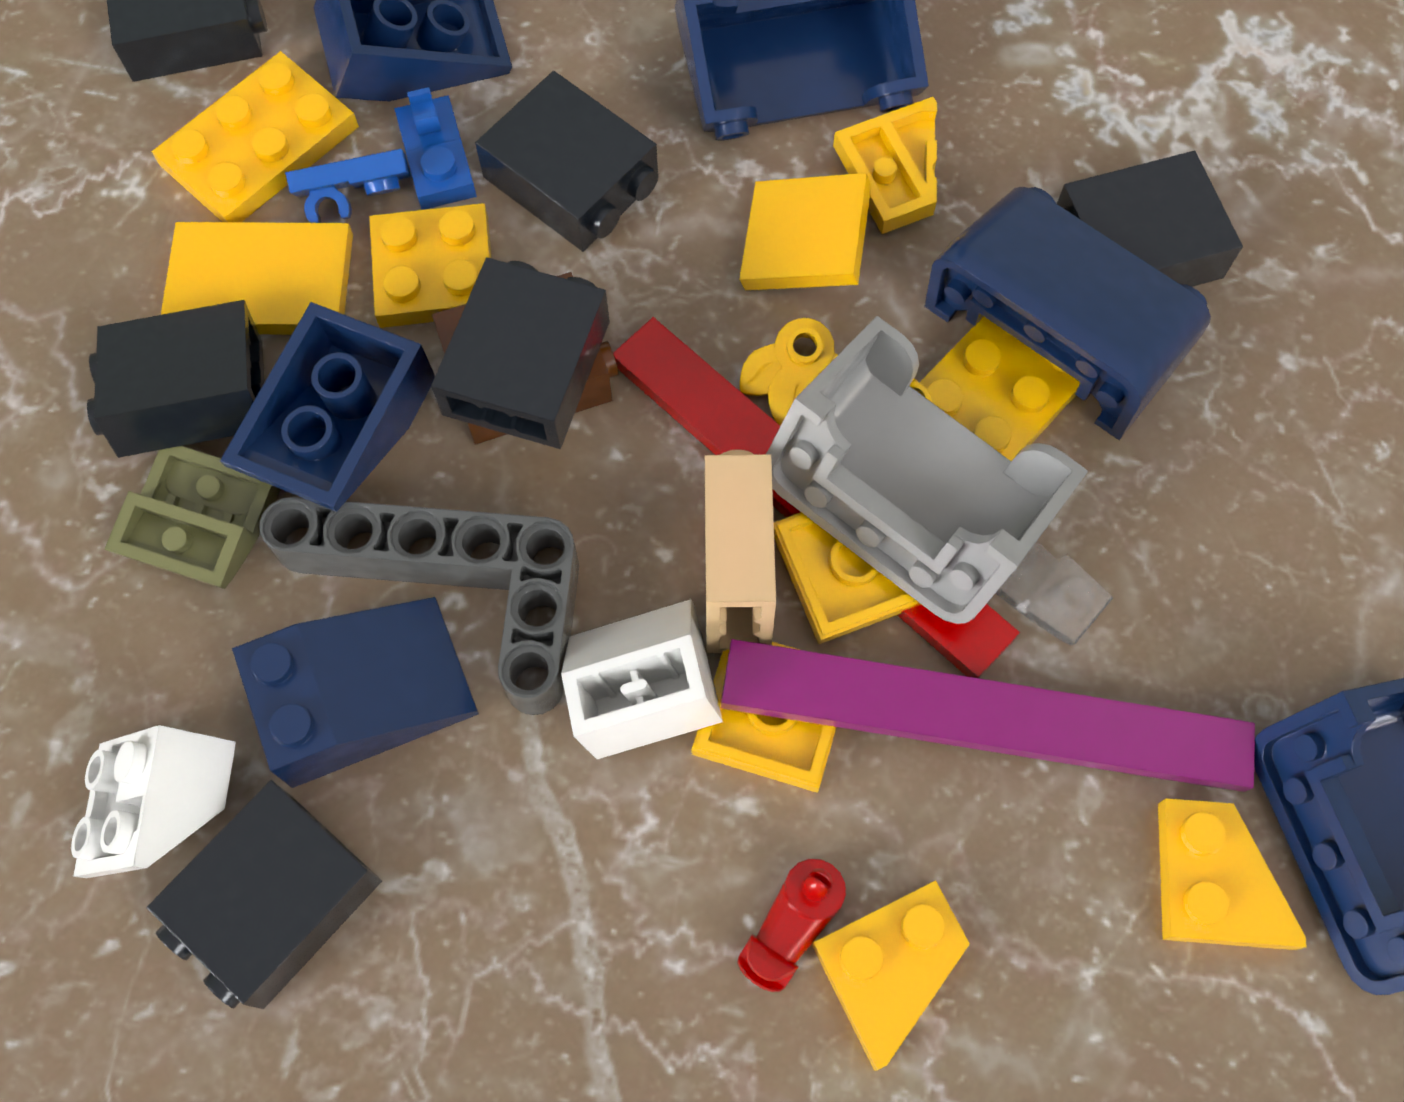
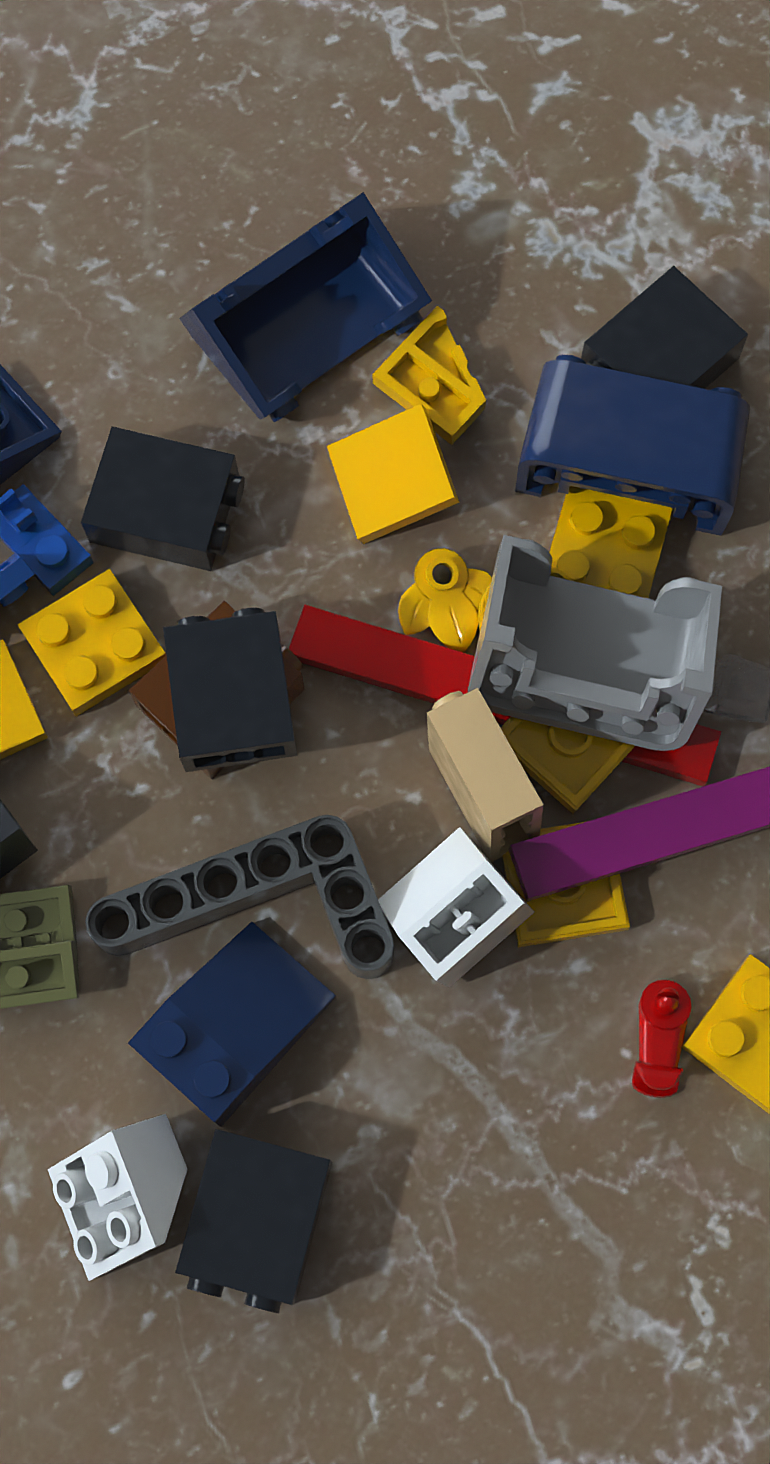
camera: 25 degrees left, 5 degrees up
(331, 407) = (89, 810): dark blue slope -> none

